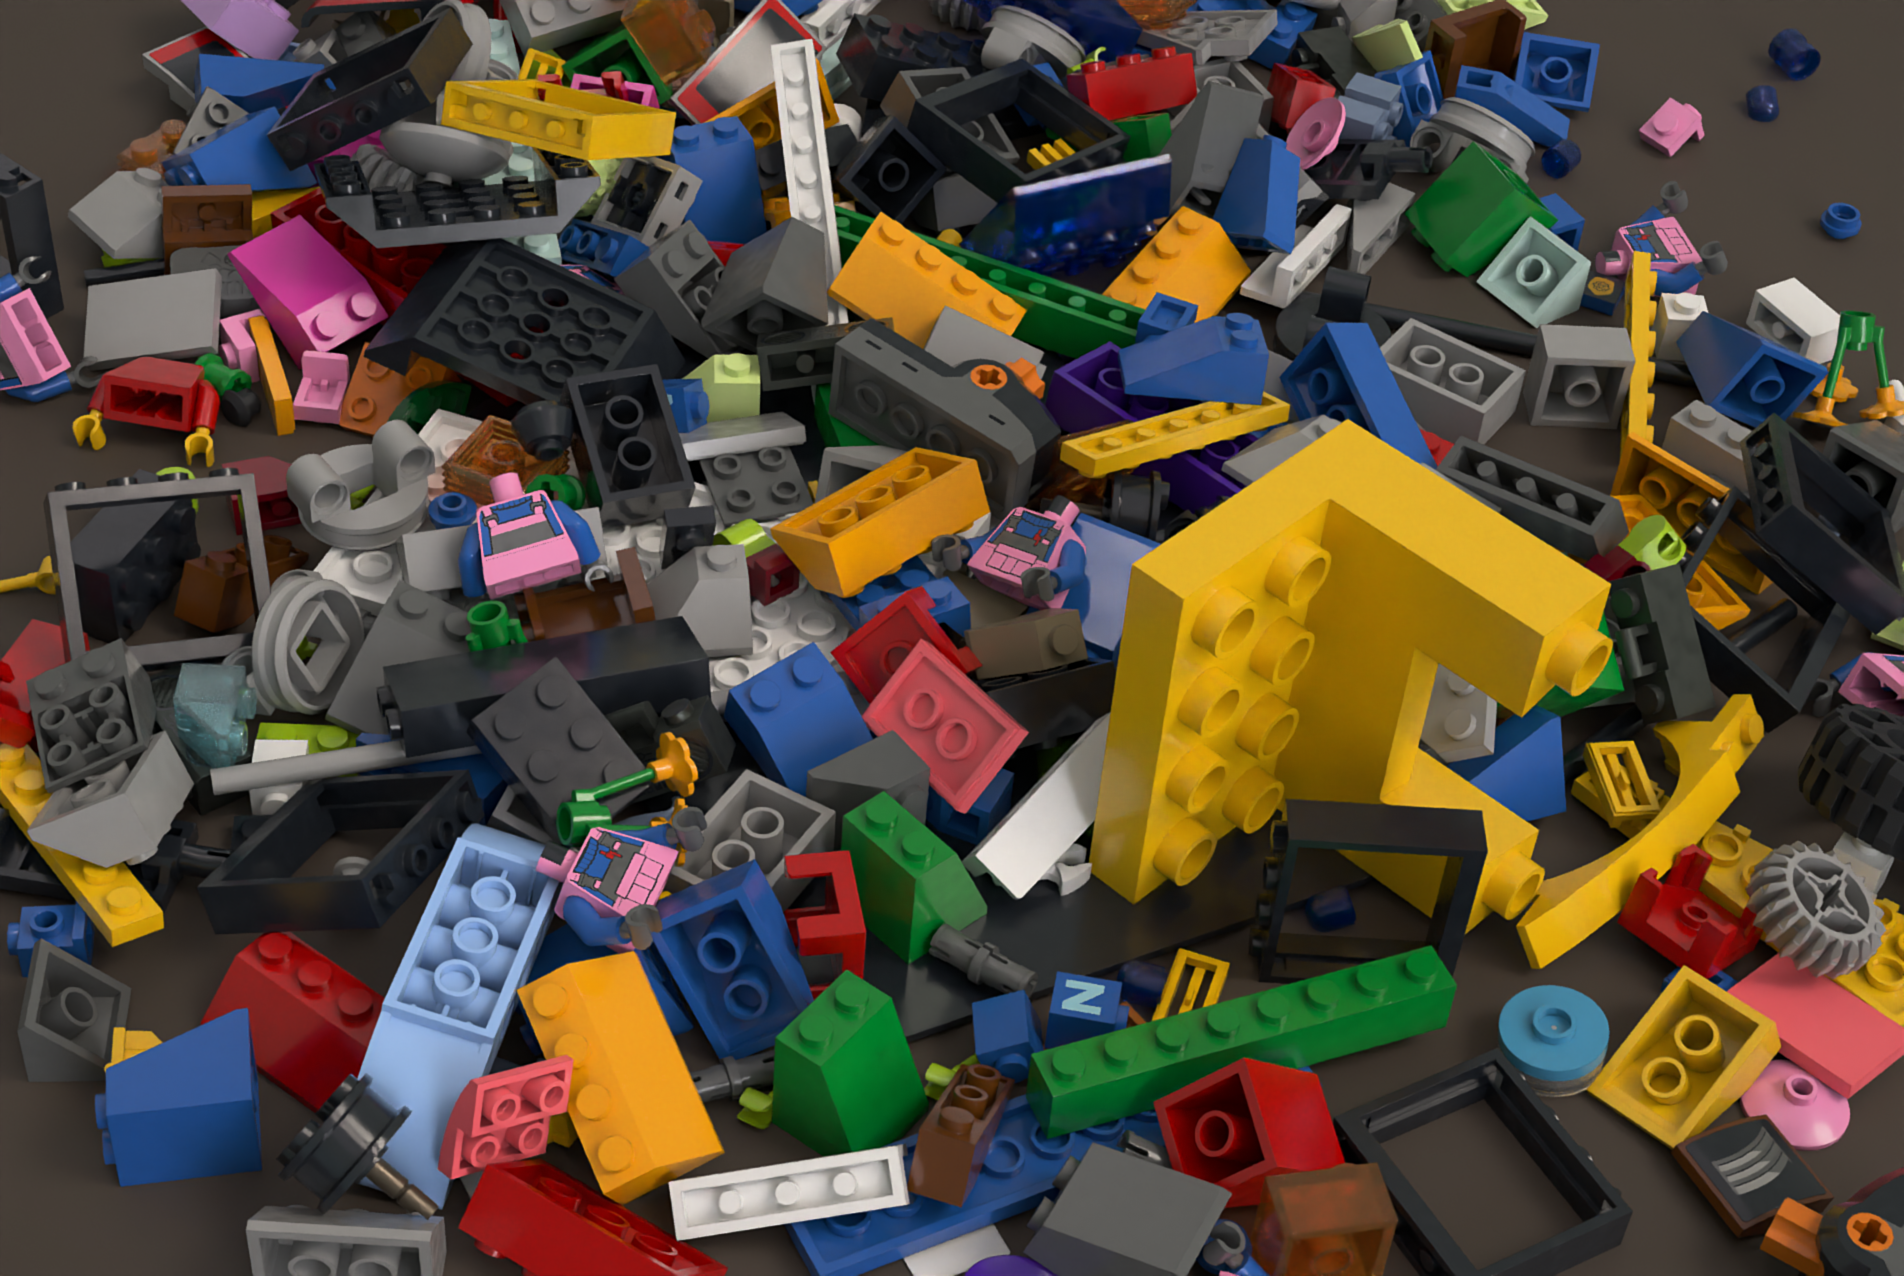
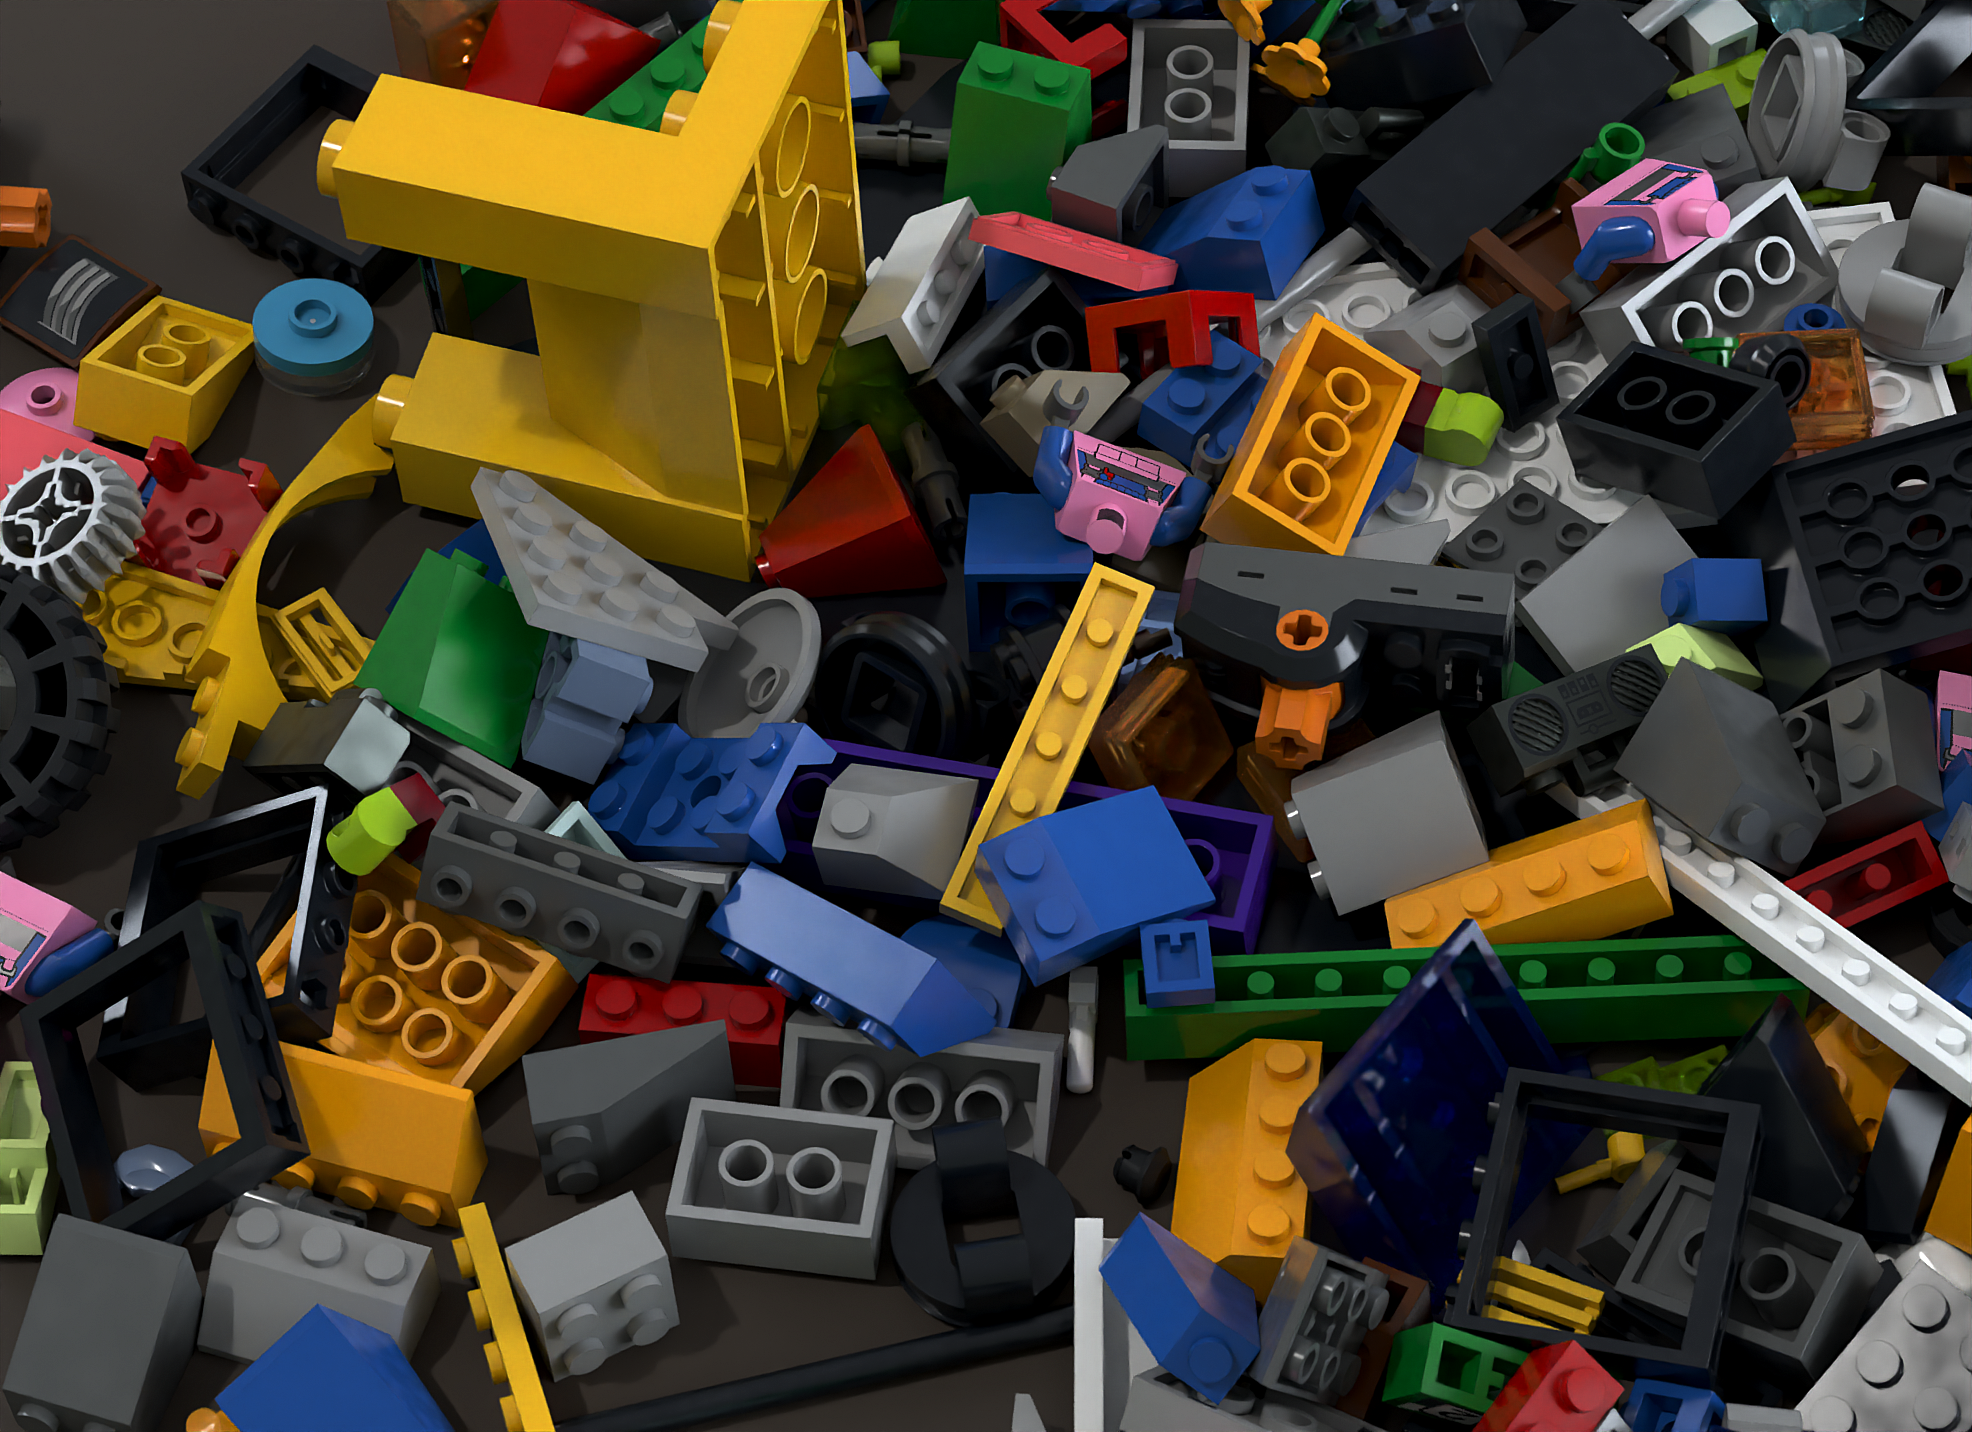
camera: 160 degrees right, 10 degrees up
(1535, 430) = (621, 1100): none -> dark grey slope

